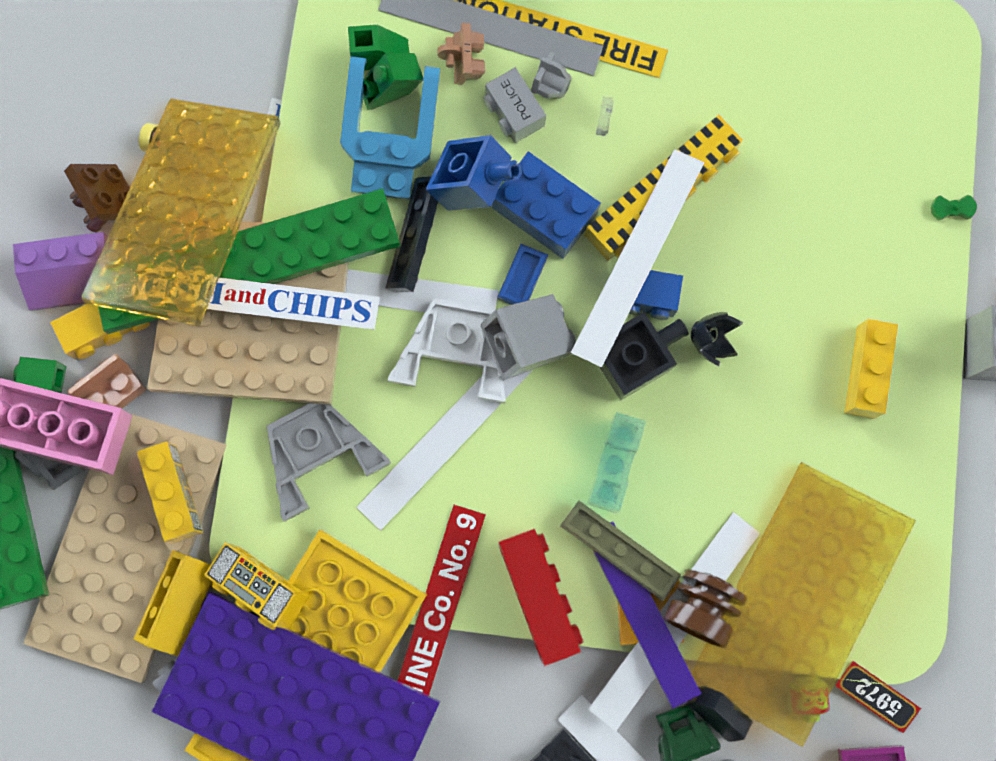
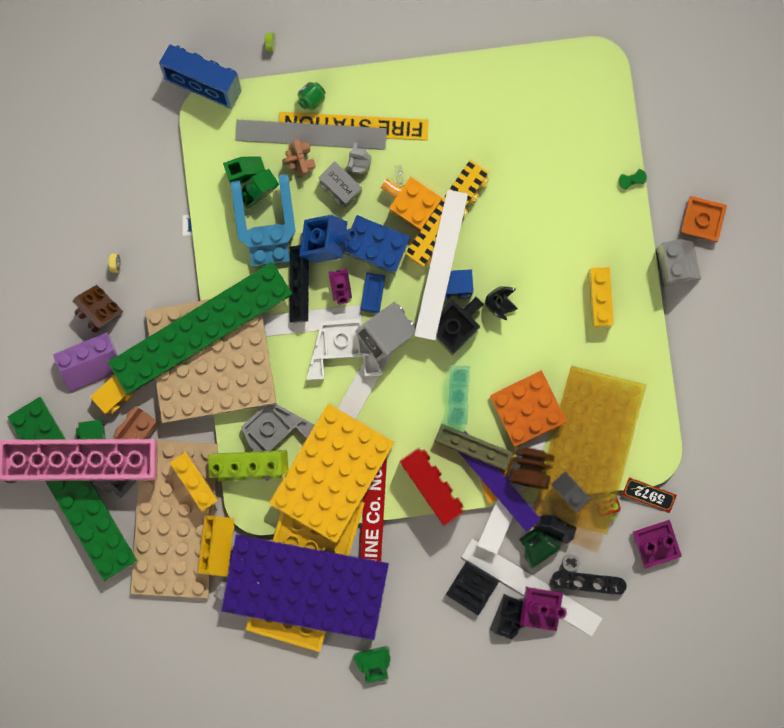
camera: 10 degrees left, 5 degrees up
(182, 212) = (152, 305): clear yellow plate -> none
(256, 587) = (262, 524): brick -> none
(260, 486) = (248, 464): none -> lime brick
(295, 303) = (215, 351): white sticker -> none
(386, 535) = (331, 473): none -> yellow plate
(476, 251) = (340, 286): none -> magenta hips
(615, 156) = (412, 202): none -> light orange brick
(720, 512) = (528, 408): none -> orange plate
(761, 663) = (571, 492): none -> dark grey slope

